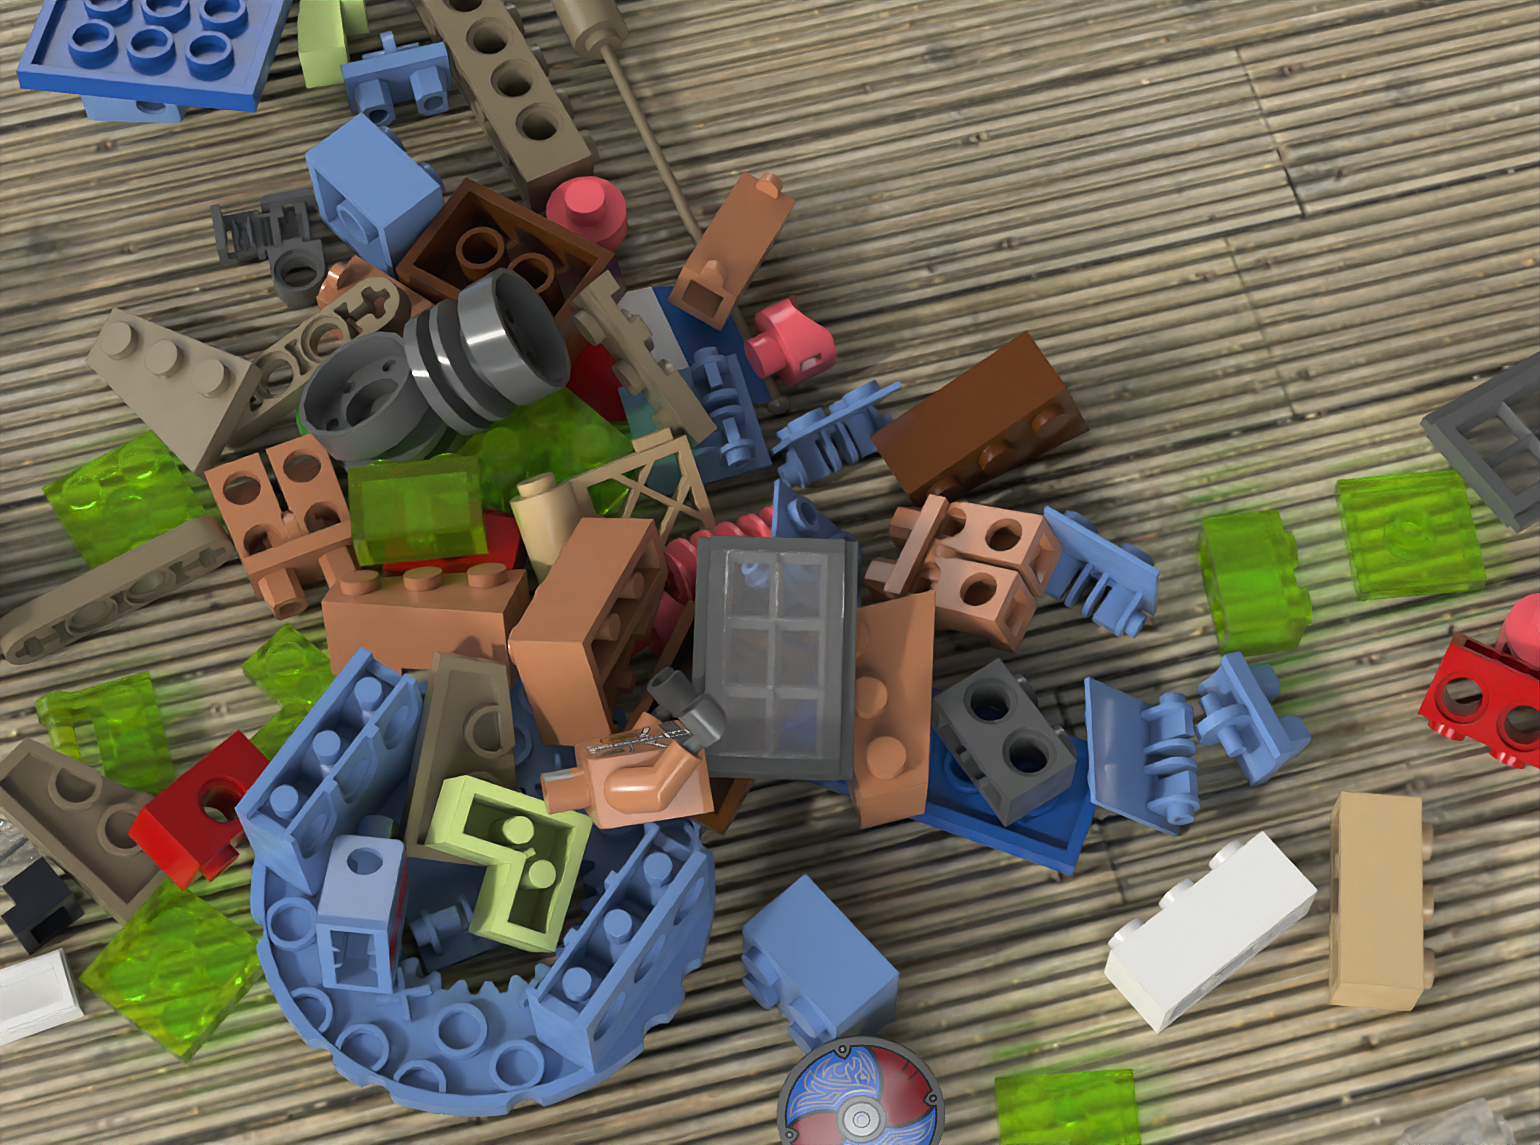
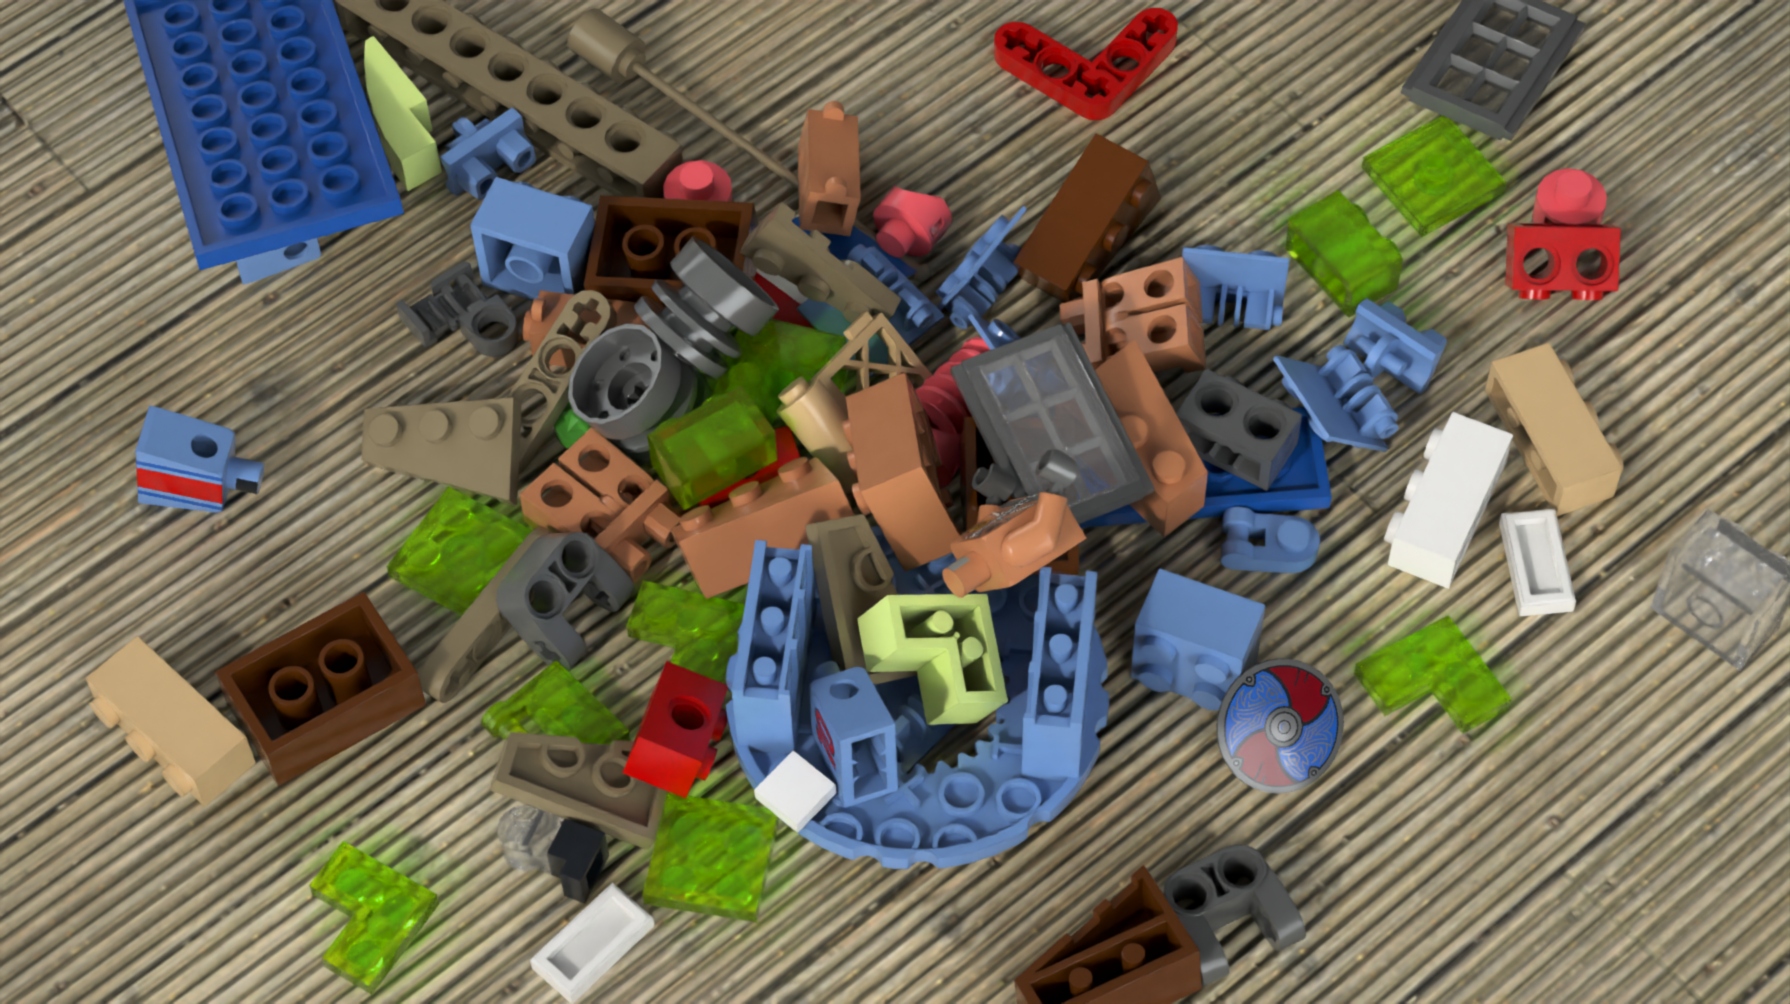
camera: 25 degrees left, 5 degrees down
(182, 595) = (555, 587): none -> dark grey piece
(278, 944) = (795, 791): none -> white tile
(1000, 900) = (1288, 547): none -> medium blue plate
(1097, 259) = (1096, 75): none -> red beam
(1274, 1051) = (1537, 562): none -> white tile

